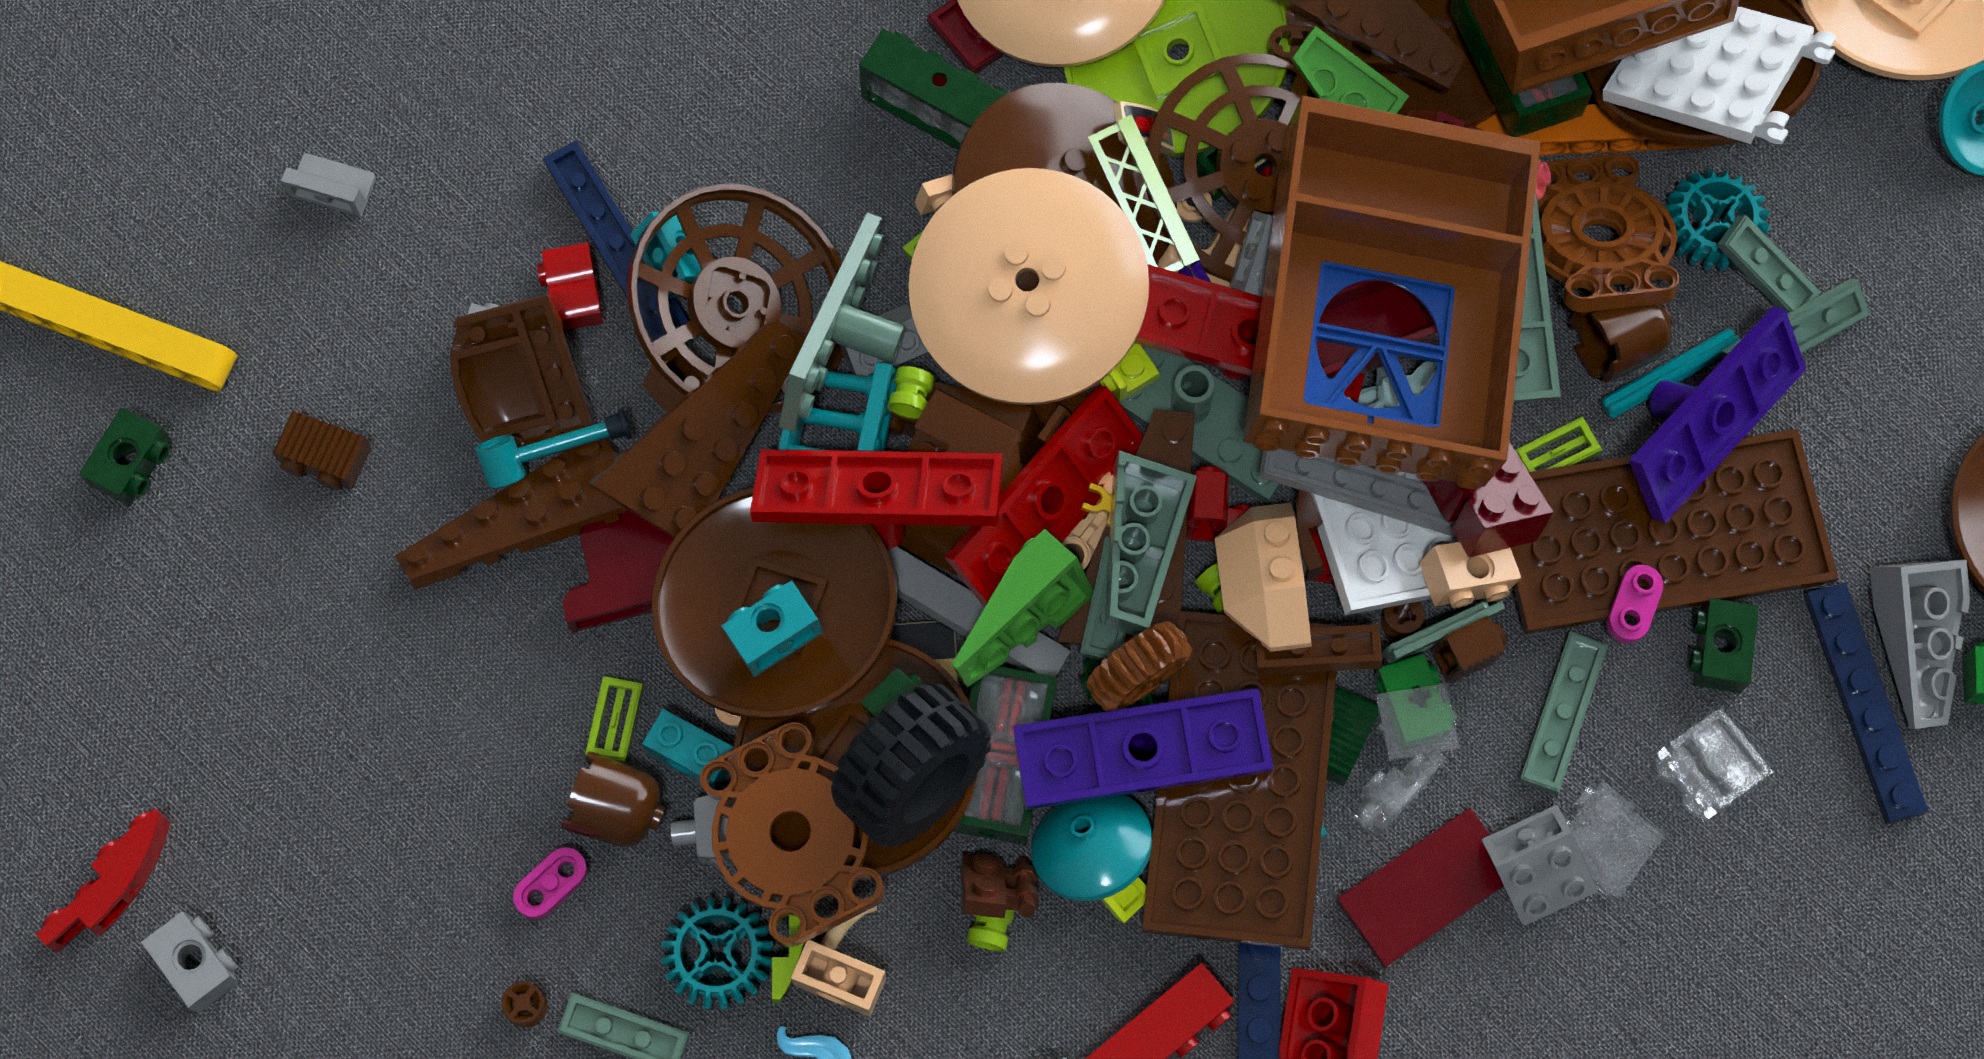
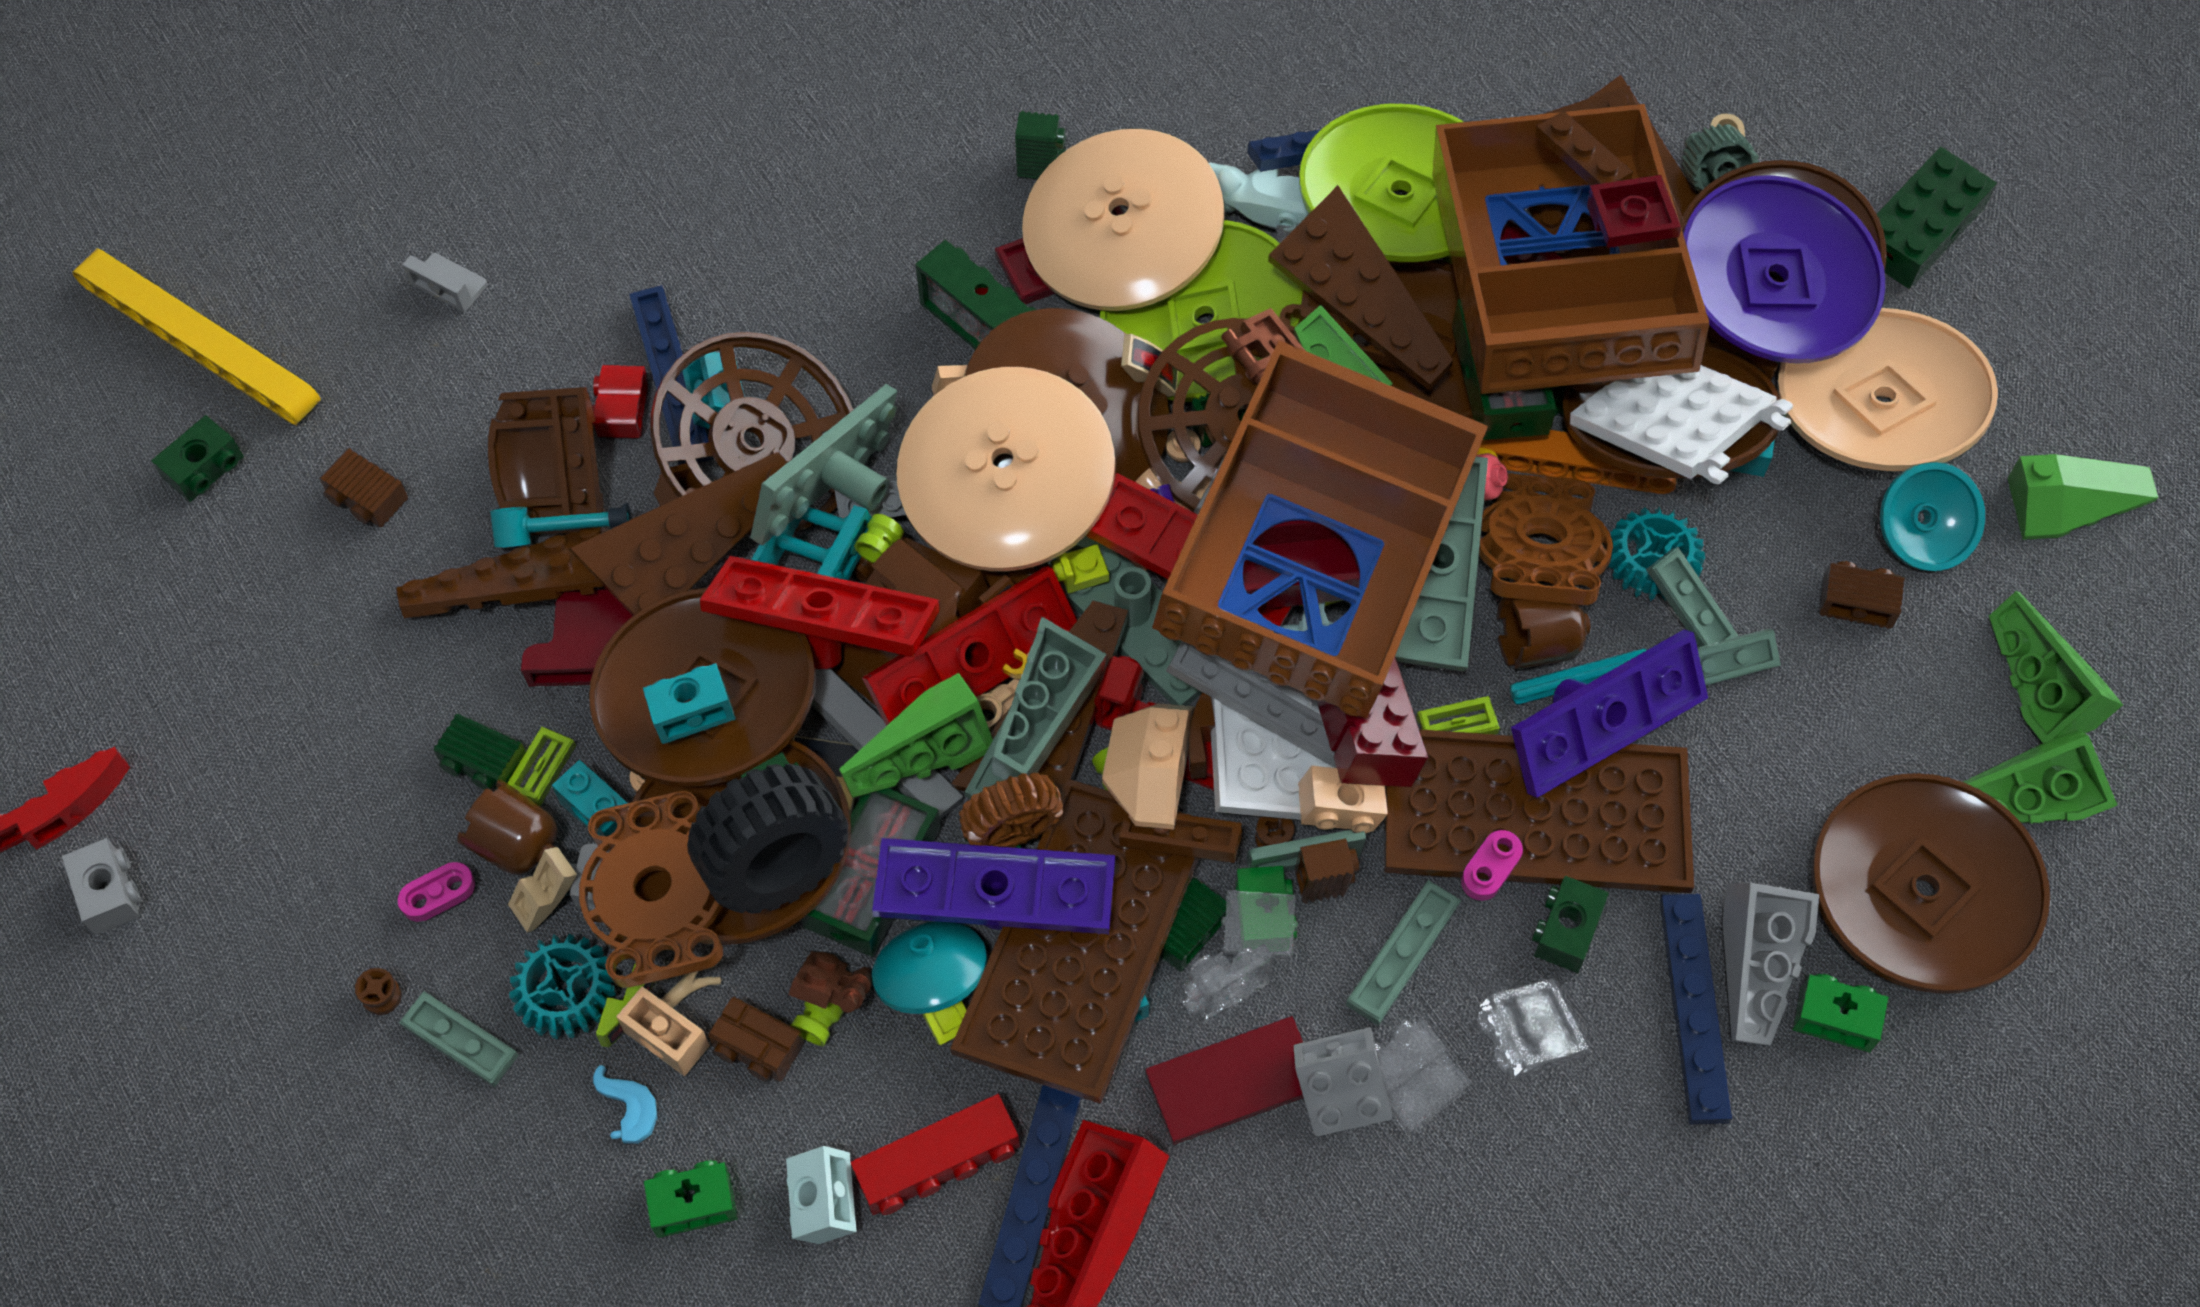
camera: 15 degrees right, 10 degrees down
(547, 723) = (478, 752): none -> dark green brick
(665, 856) = (541, 893): none -> tan slope
(934, 963) = (755, 1040): none -> reddish brown brick
(1155, 187) = (1140, 408): fence -> none
(1274, 79) = (1261, 333): none -> copper plate
(1936, 218) = (1862, 594): none -> reddish brown brick

